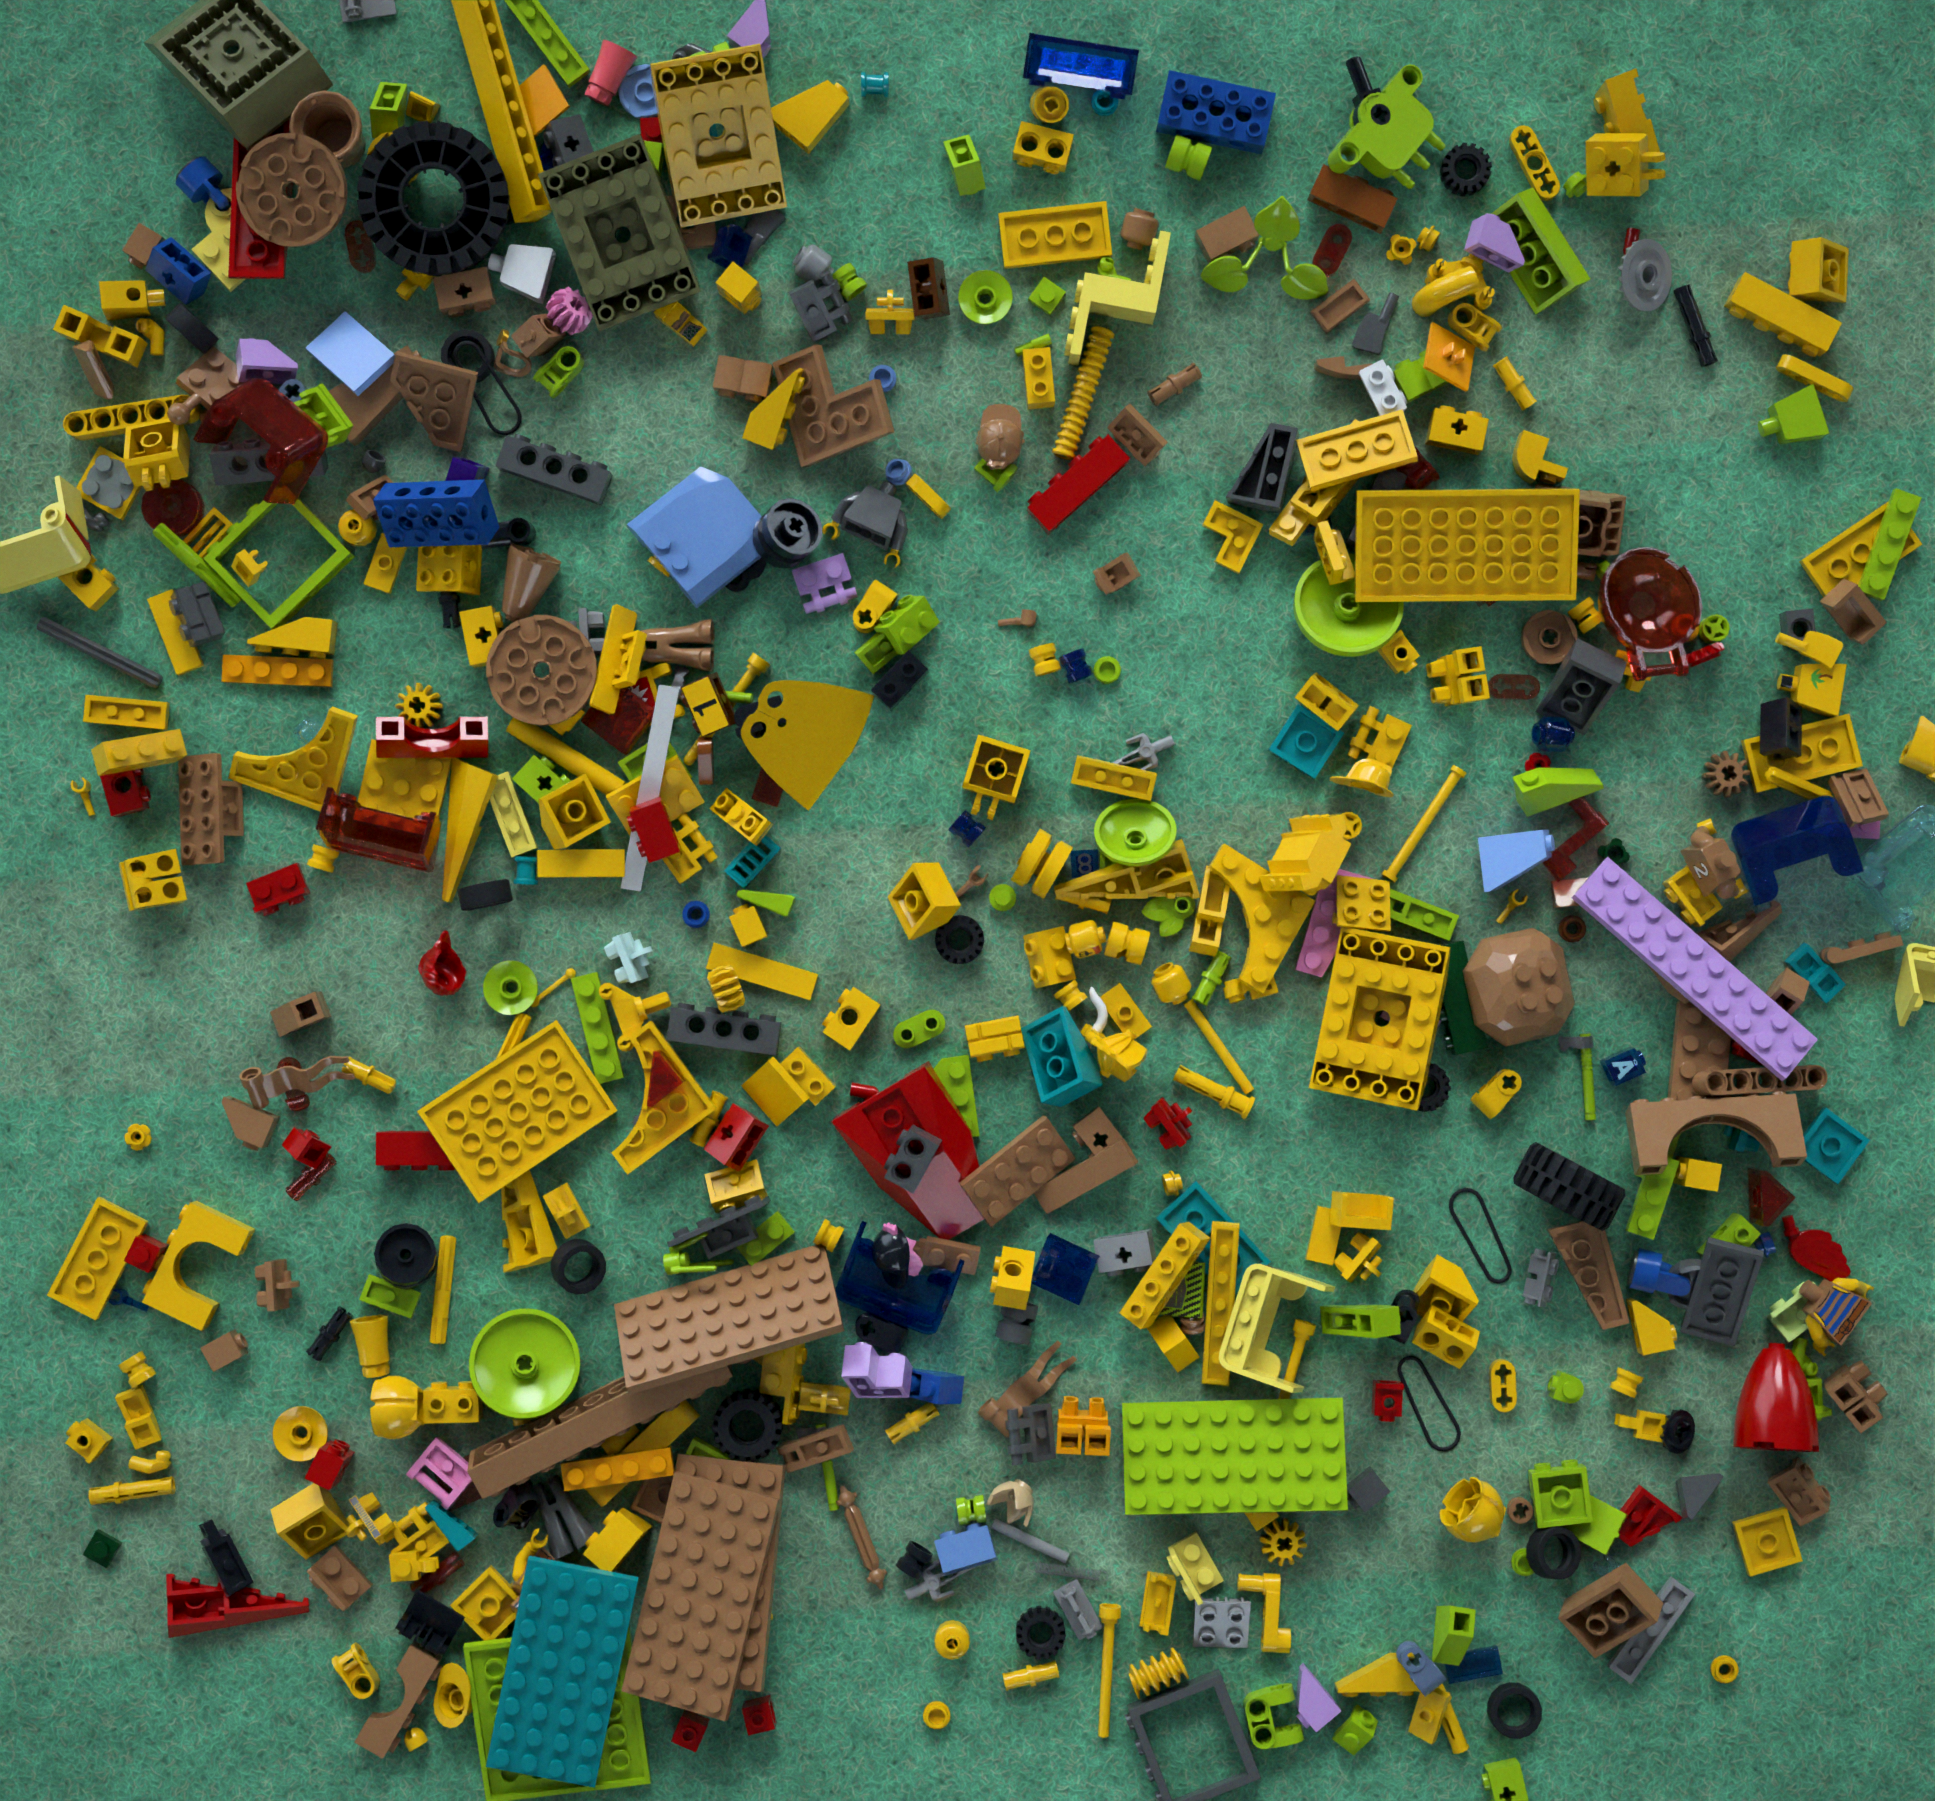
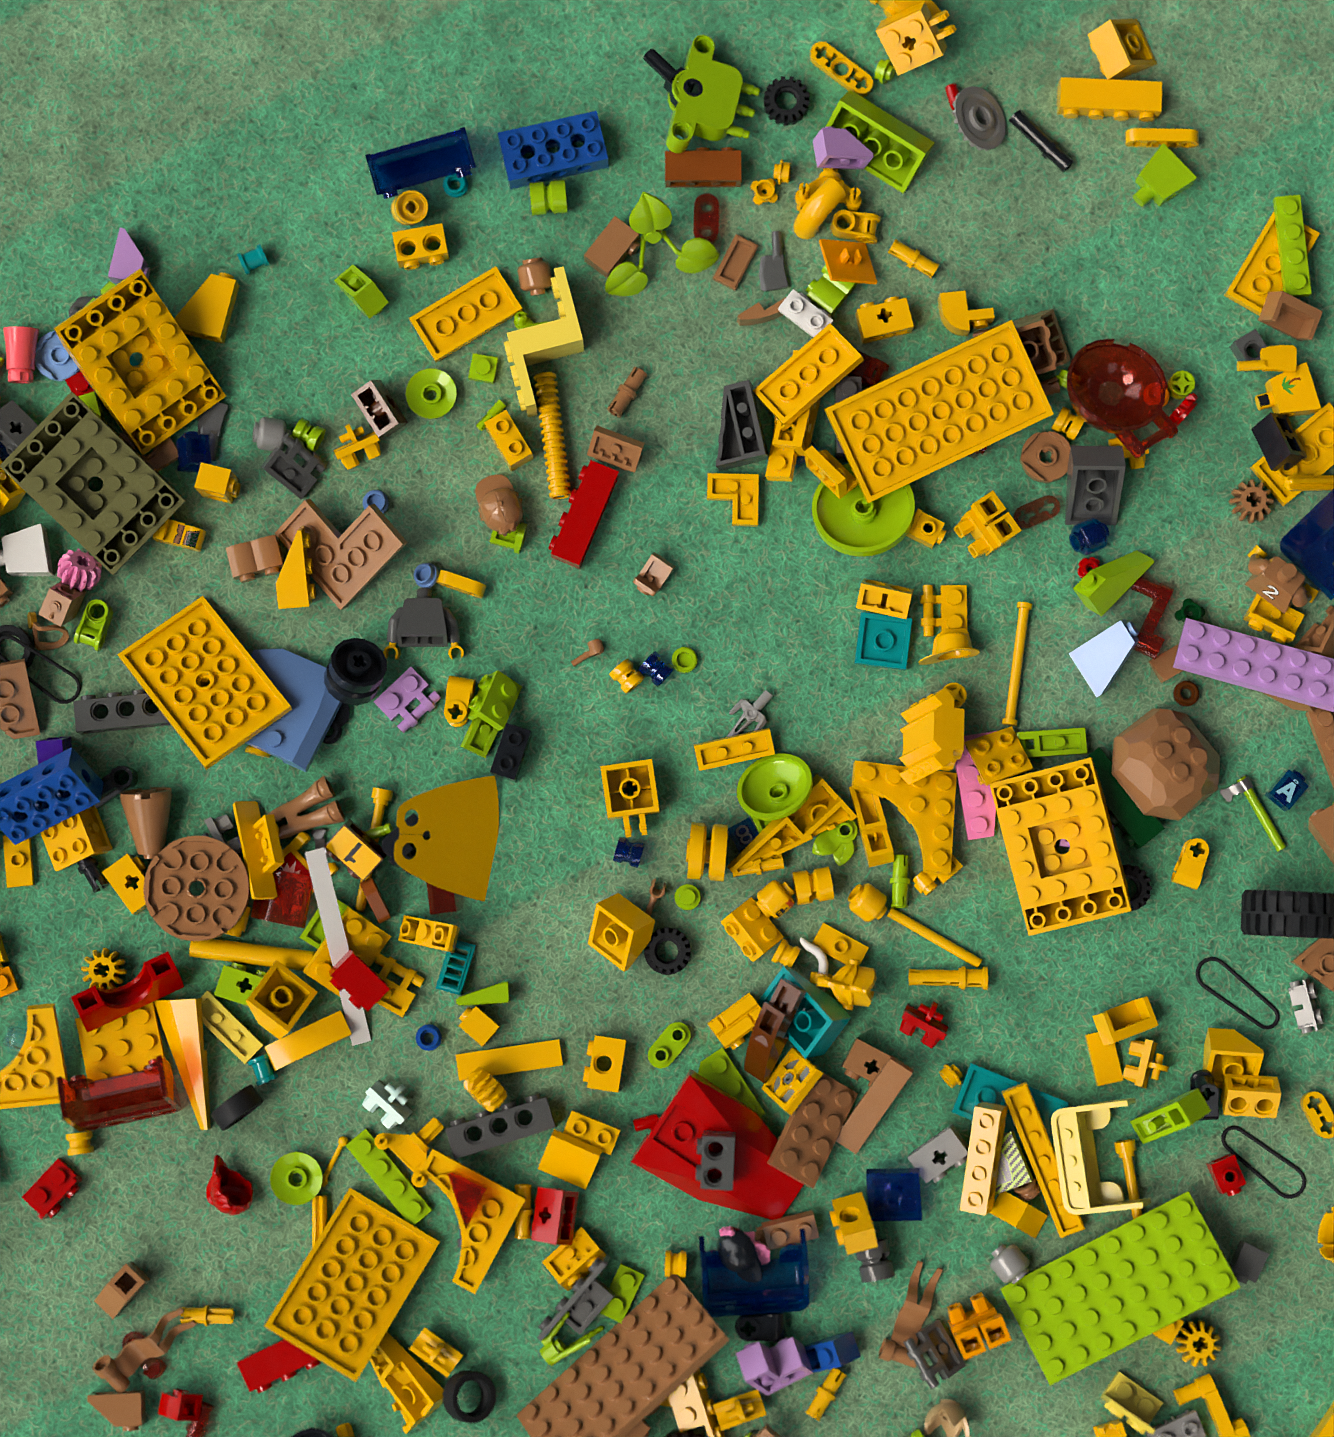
camera: 25 degrees left, 5 degrees down
(639, 476) = (204, 682): none -> yellow piece
(1018, 1117) = (792, 1081): none -> yellow piece
(1021, 1059) = (770, 1029): none -> reddish brown slope
(1142, 1384) = (1009, 1263): none -> light grey head
(1511, 906) = (1125, 699): yellow hand -> none

